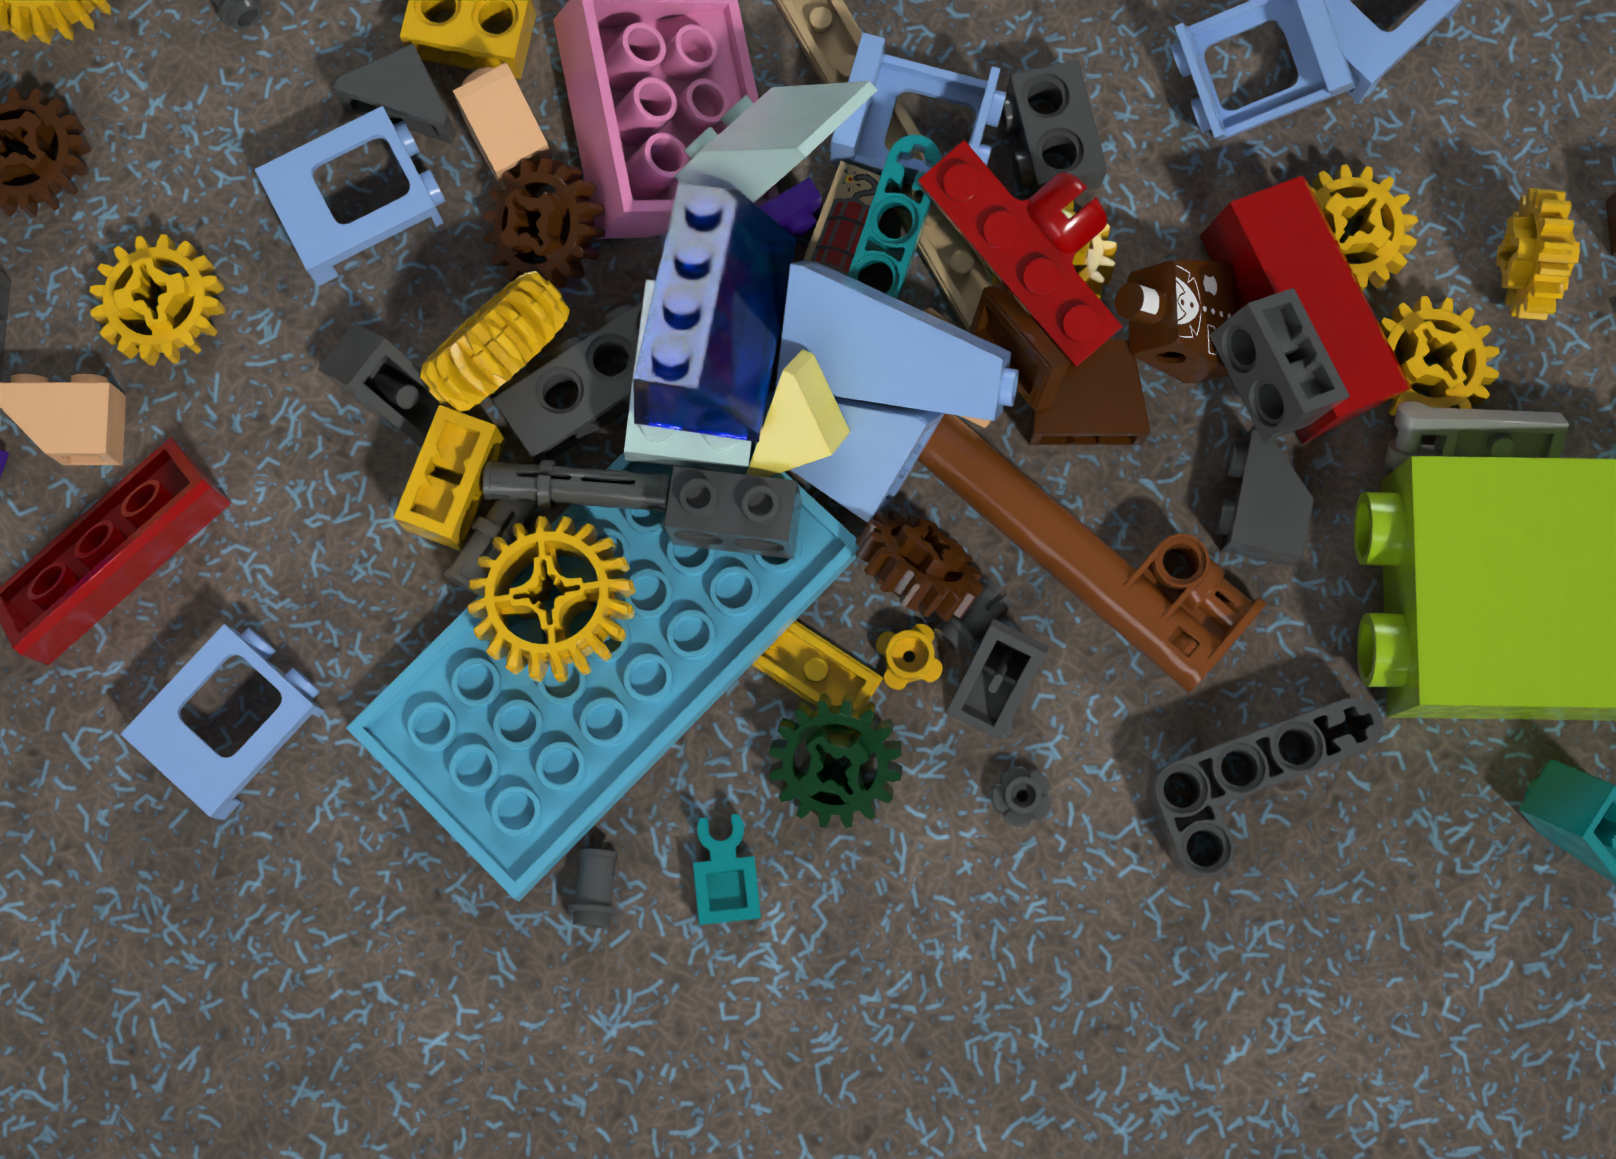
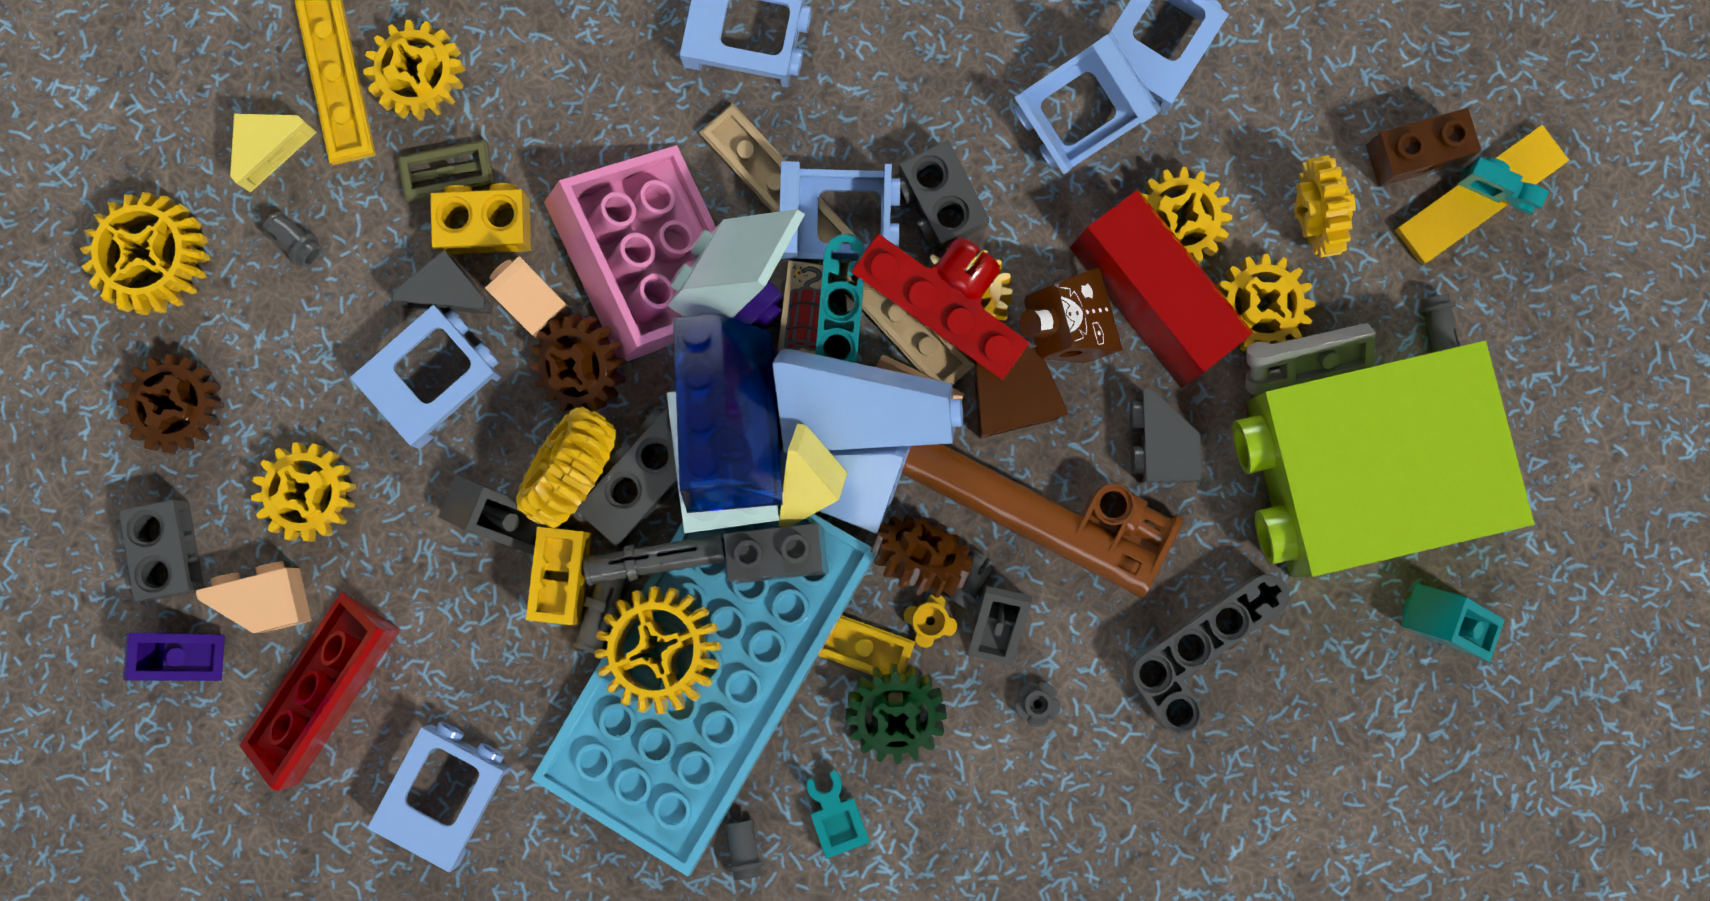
camera: 10 degrees left, 5 degrees up
(1009, 326) = (945, 363): reddish brown tile -> none
(1279, 364) = (1152, 343): dark grey brick -> none

